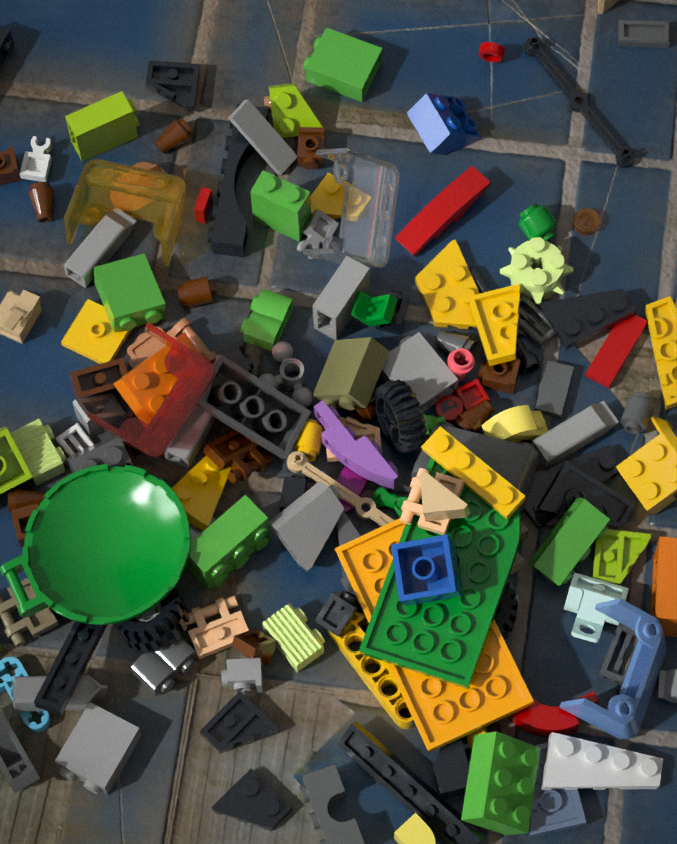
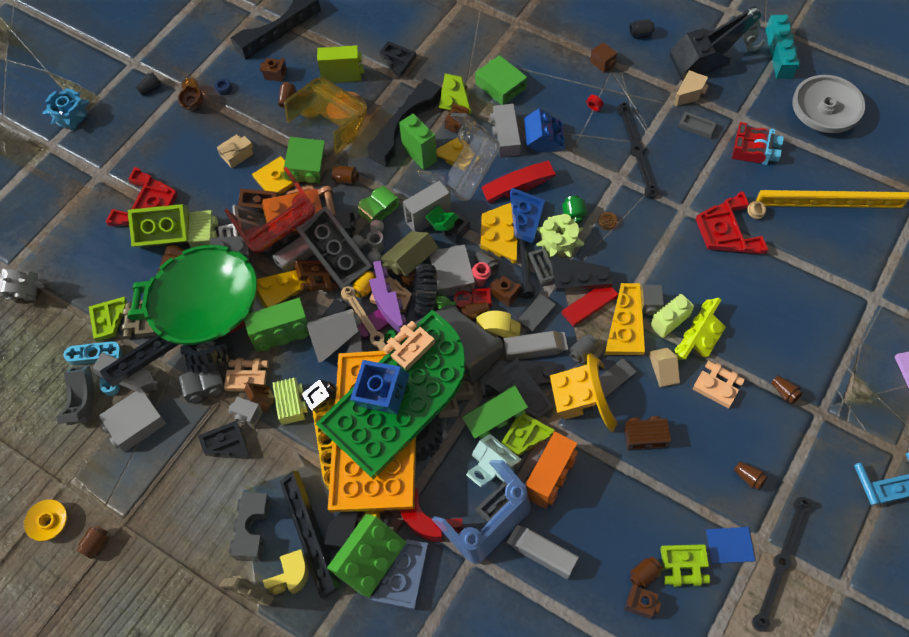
camera: 25 degrees right, 5 degrees down
(37, 163) = (296, 73): white plate -> none
(99, 246) = (306, 127): light grey piece -> none
(175, 135) = (380, 86): reddish brown cone -> none
(203, 205) = (375, 127): red tile -> none
(253, 802) = (207, 496): black wing -> none
(263, 137) = (428, 100): light grey tile -> none
(317, 229) = (436, 164): light grey plate -> none
(388, 138) = (506, 130): none -> light grey brick
(439, 501) = (407, 345): tan slope -> none
(475, 473) = (445, 338): yellow plate -> none
(476, 253) = (525, 214): none -> blue wing
(497, 322) = (517, 257): yellow wing -> none
(587, 764) = (436, 569): white wing -> none

